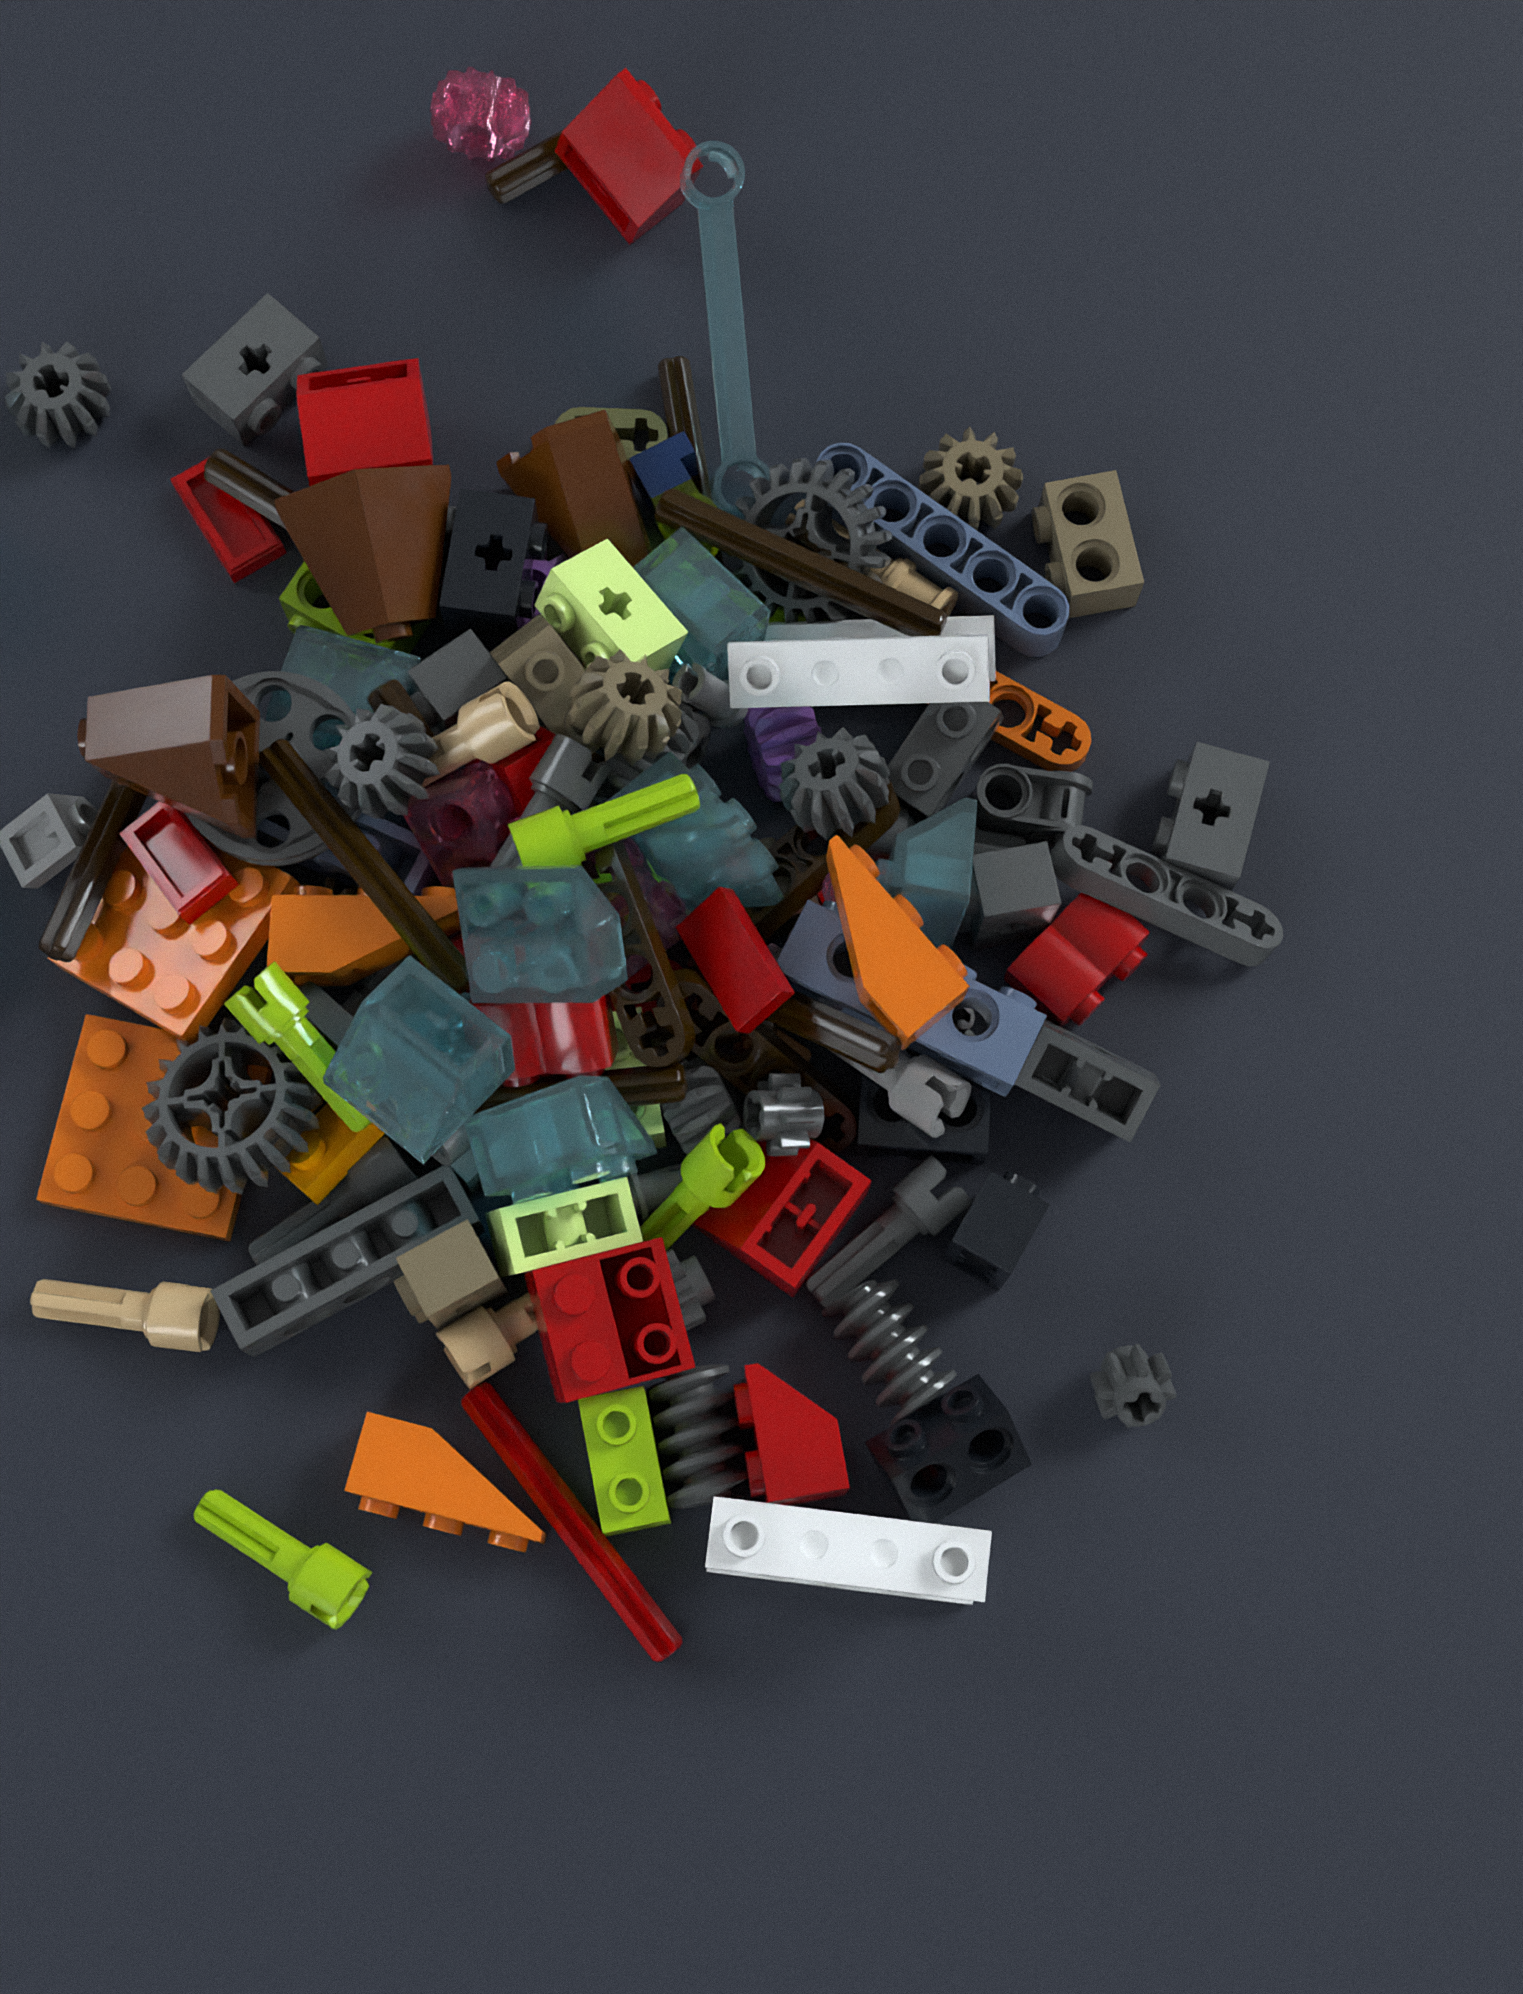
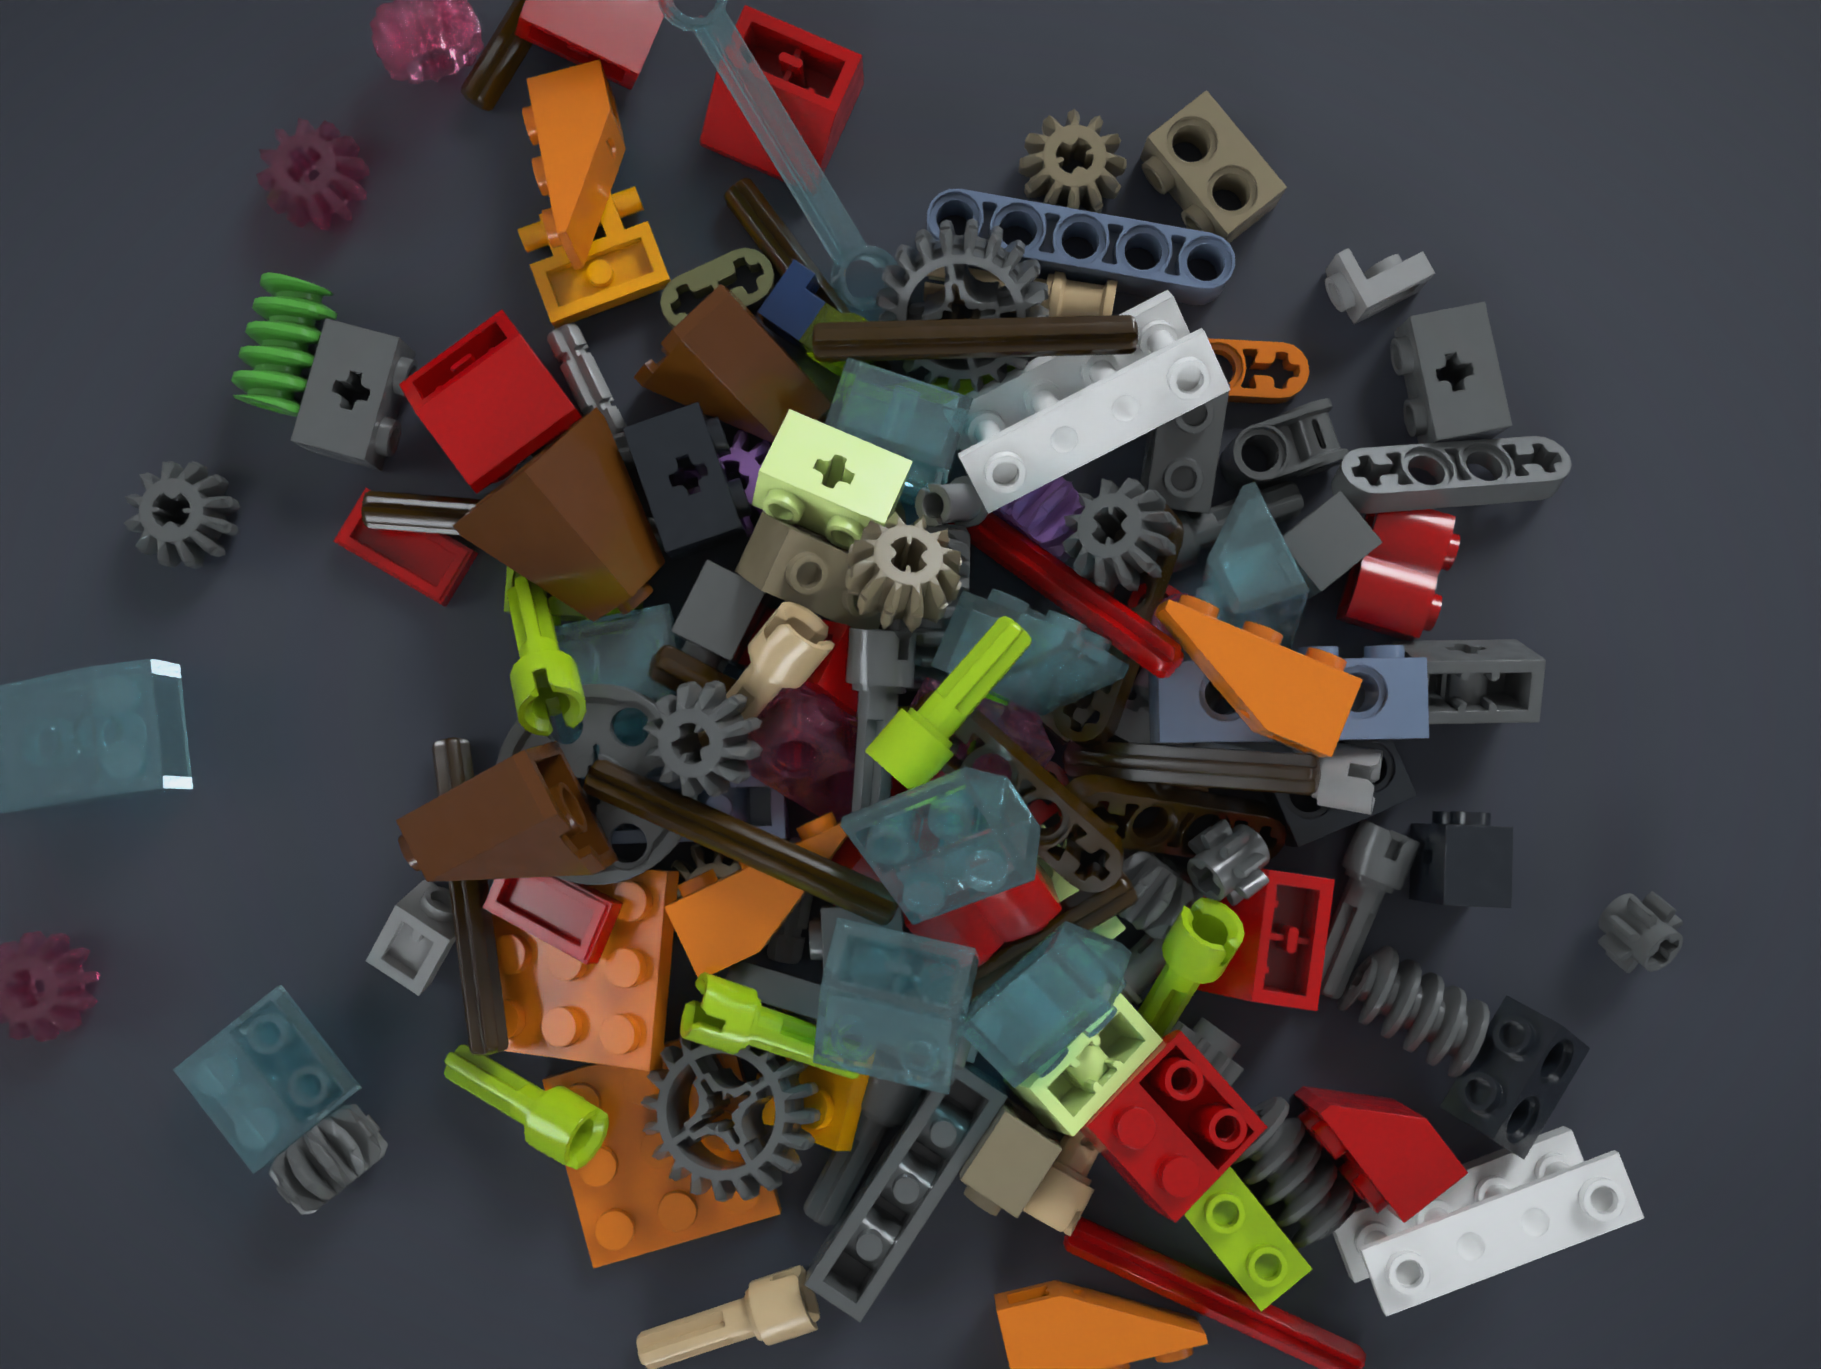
camera: 25 degrees left, 10 degrees up
(73, 1038) = (553, 1120): none -> lime piece
(219, 296) = (282, 343): none -> bright green piece
(279, 646) = (544, 677): none -> lime piece
(324, 180) = (294, 160): none -> clear pink gear
(458, 444) = (583, 374): none -> light grey axle
(521, 373) = (616, 270): none -> light orange plate
(555, 265) = (580, 149): none -> orange slope
(734, 960) = (1120, 751): red tile -> none
(773, 820) = (1077, 596): none -> red axle
(780, 299) = (810, 77): none -> red slope
(1192, 714) = (1385, 283): none -> light grey bracket

